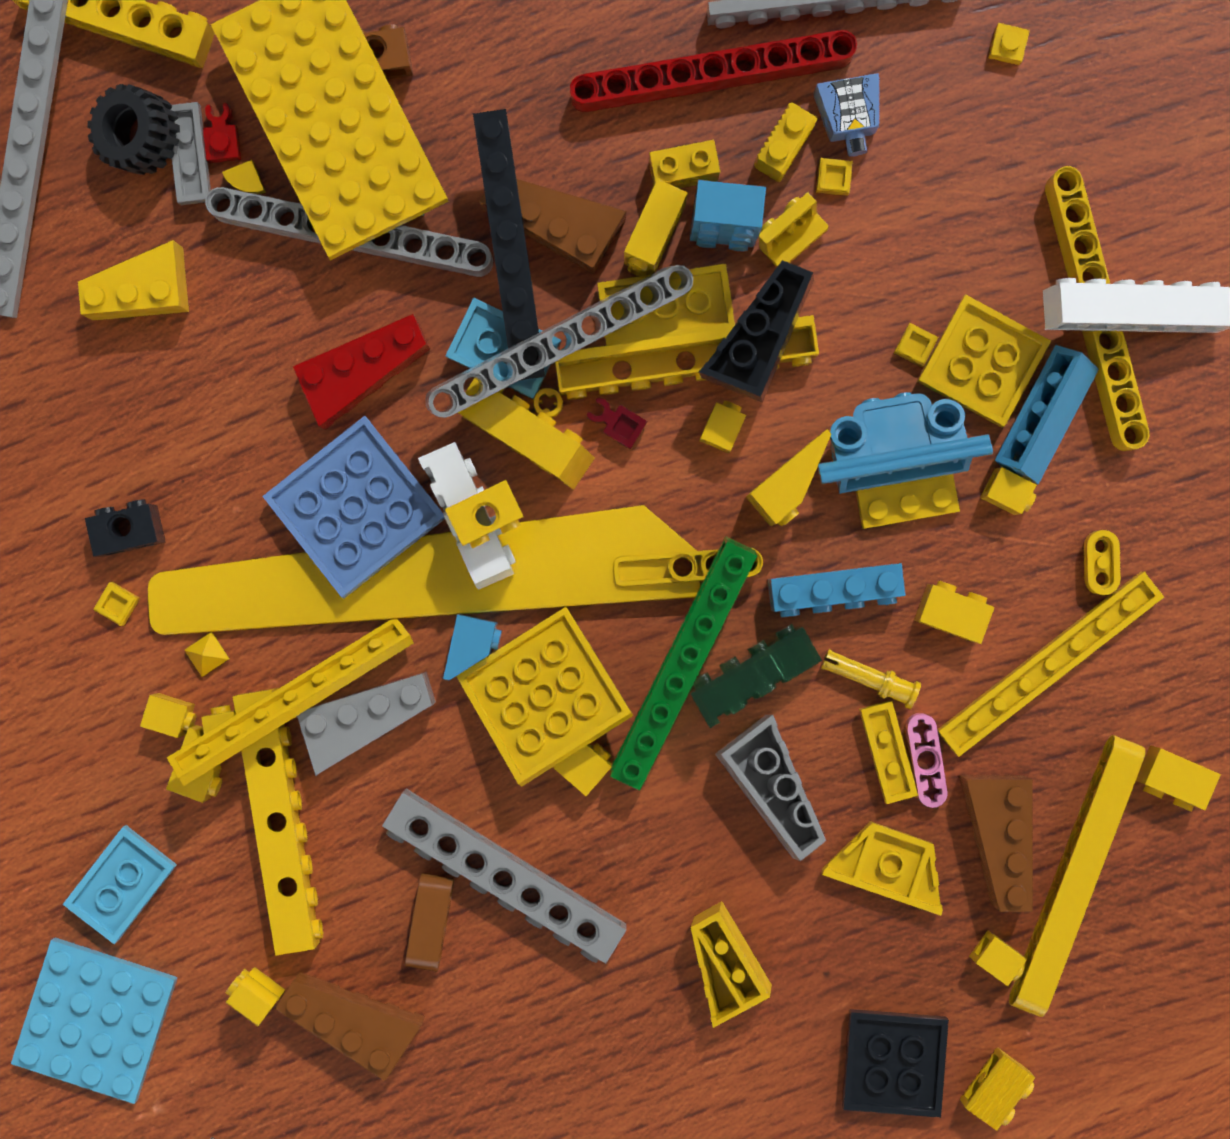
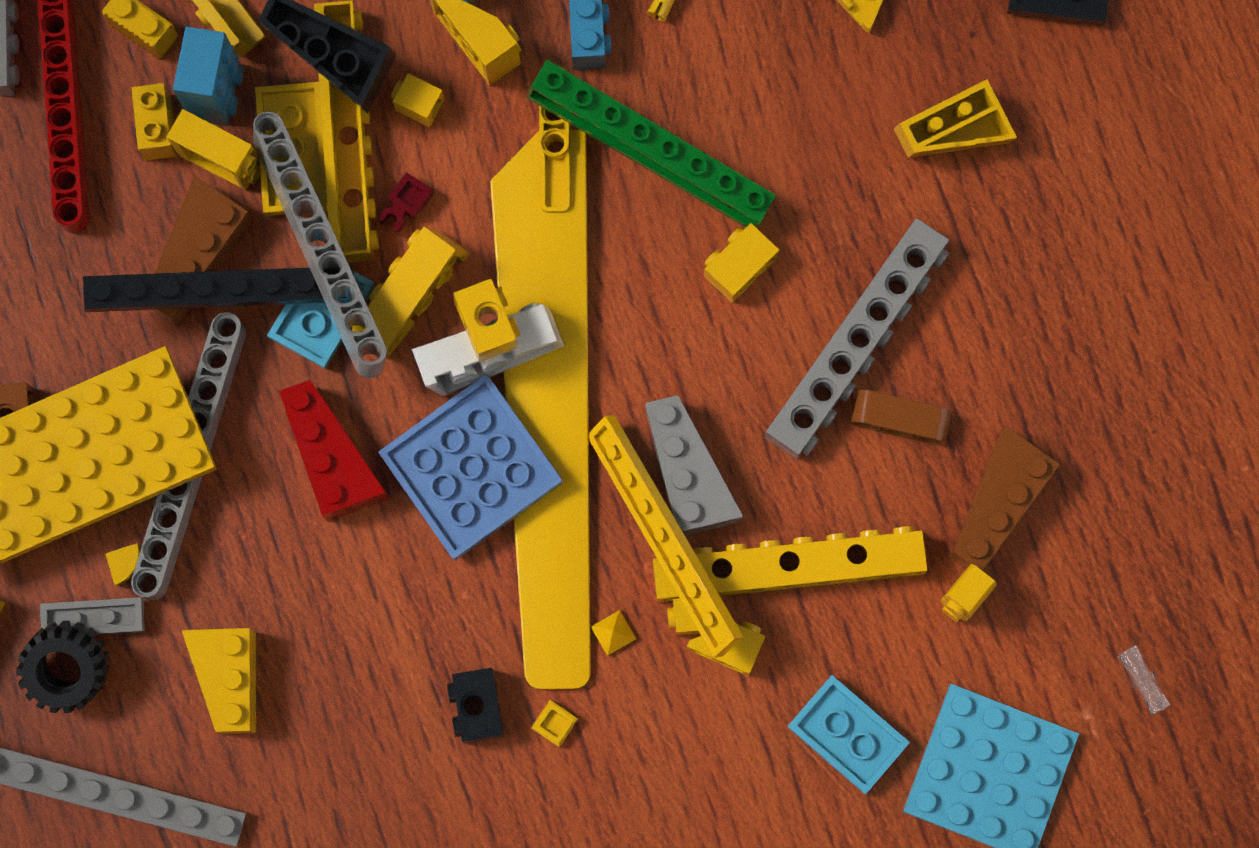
camera: 85 degrees left, 10 degrees down
(168, 715) = (674, 671): yellow brick -> none
(221, 139) = (80, 585): red plate -> none
(470, 643) = (619, 359): dark azure slope -> none
(544, 696) = (675, 284): yellow plate -> none
(550, 393) = (369, 268): yellow bush -> none
(754, 674) = (667, 81): clear green wedge -> none
(767, 777) = (774, 73): light grey wedge -> none

